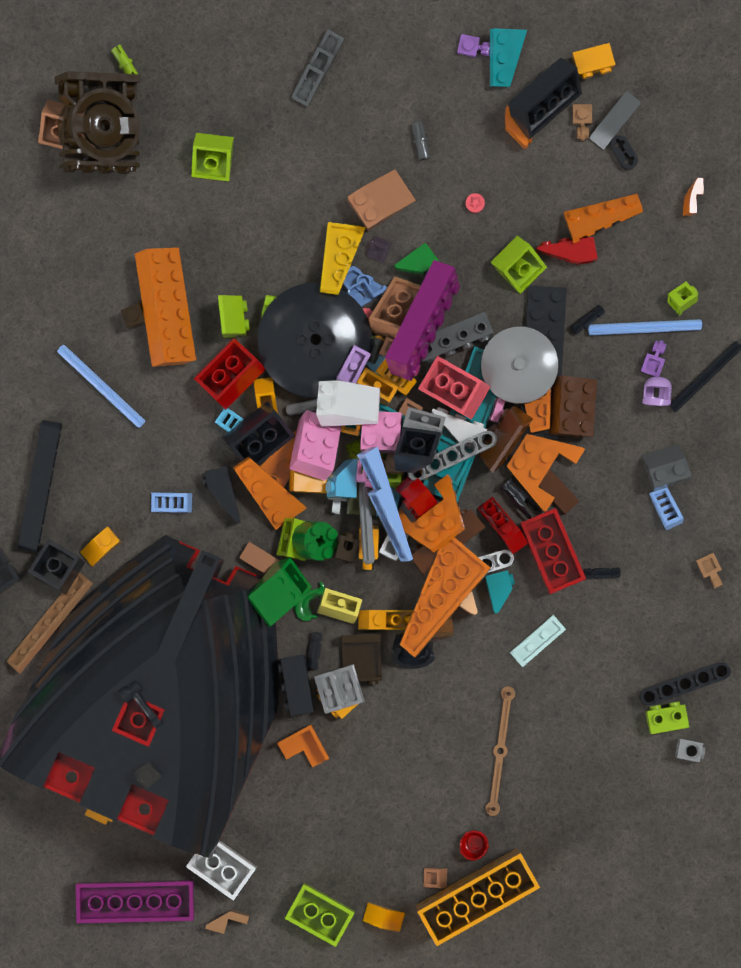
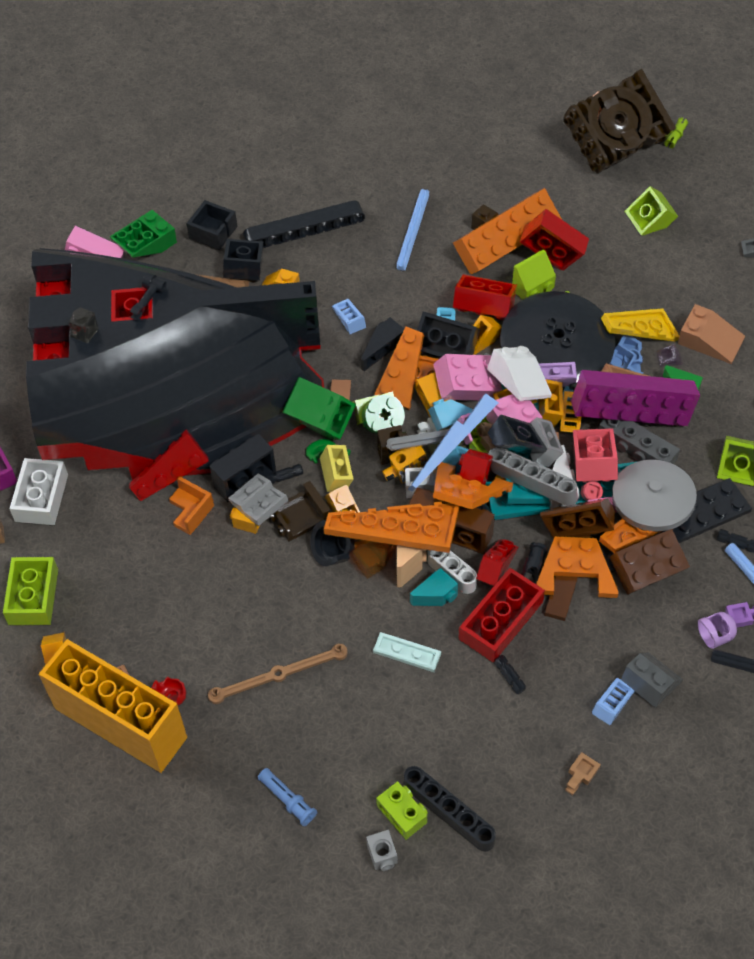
camera: 65 degrees right, 30 degrees down
(207, 275) = (559, 239): none -> red brick
(268, 741) = (176, 462): none -> red wing
(484, 411) = (591, 491): none -> coral tile
(617, 791) = (293, 802): none -> medium blue pin

